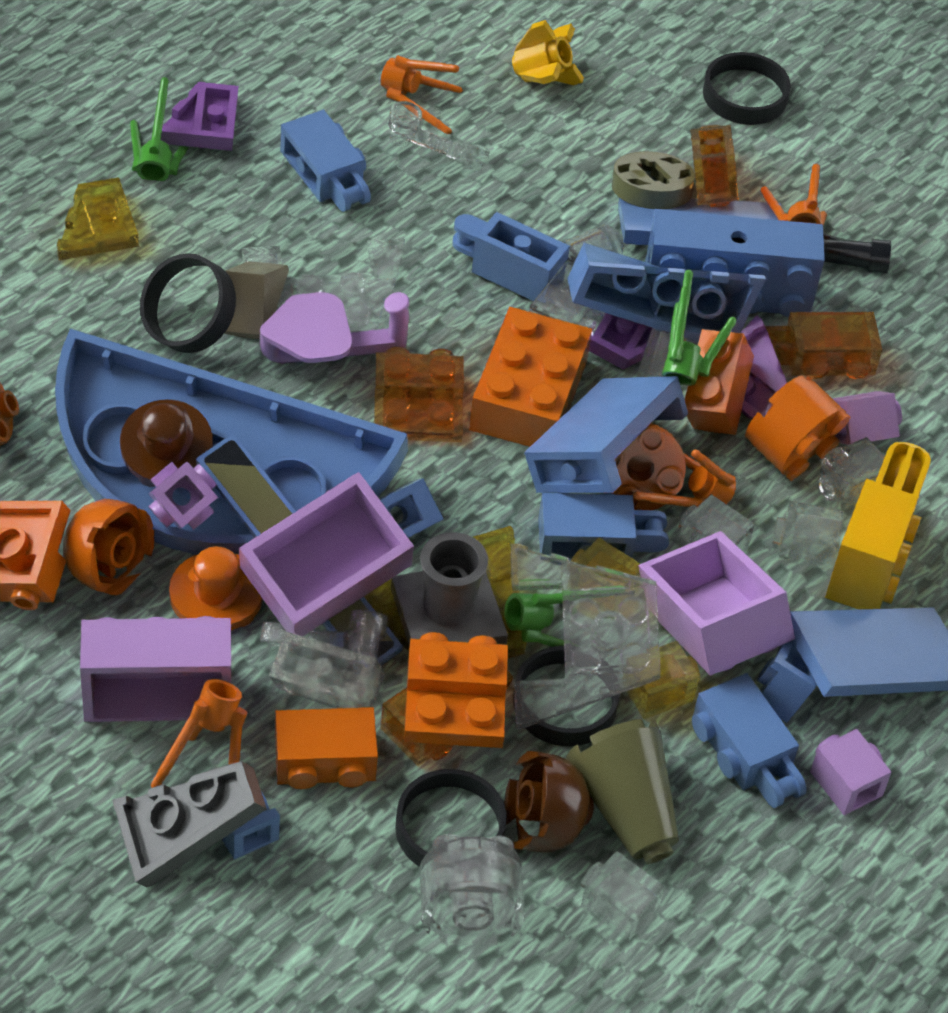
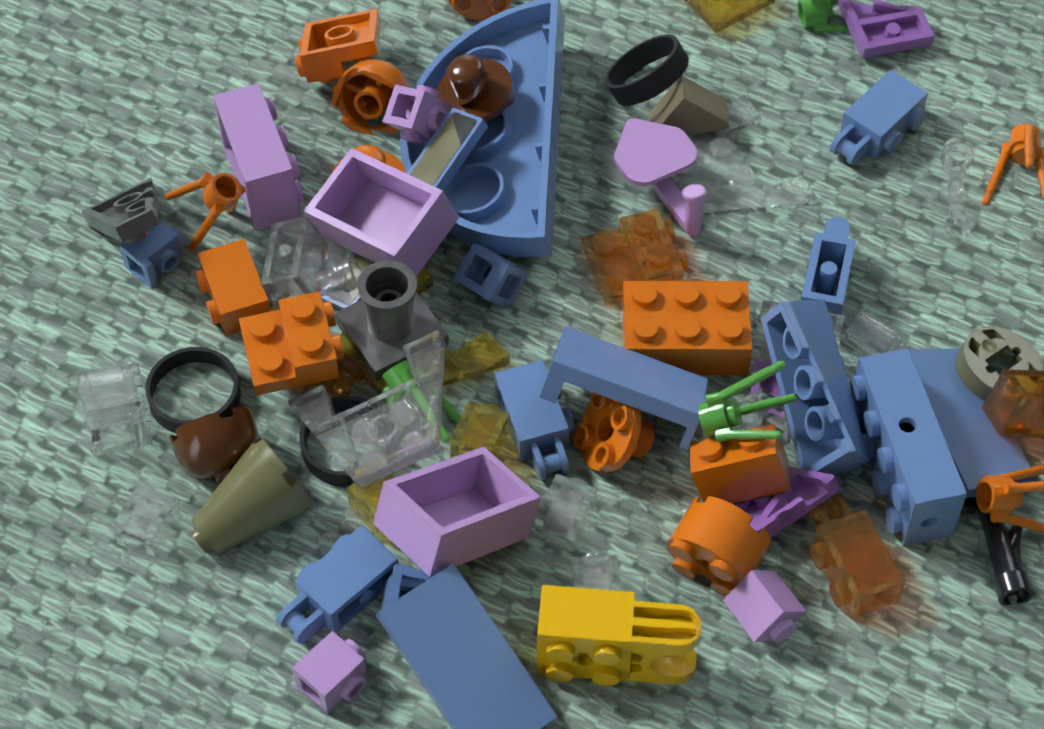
camera: 80 degrees right, 5 degrees up
(704, 480) = (623, 494): orange plant -> none
(846, 470) = (704, 601): clear brick -> none

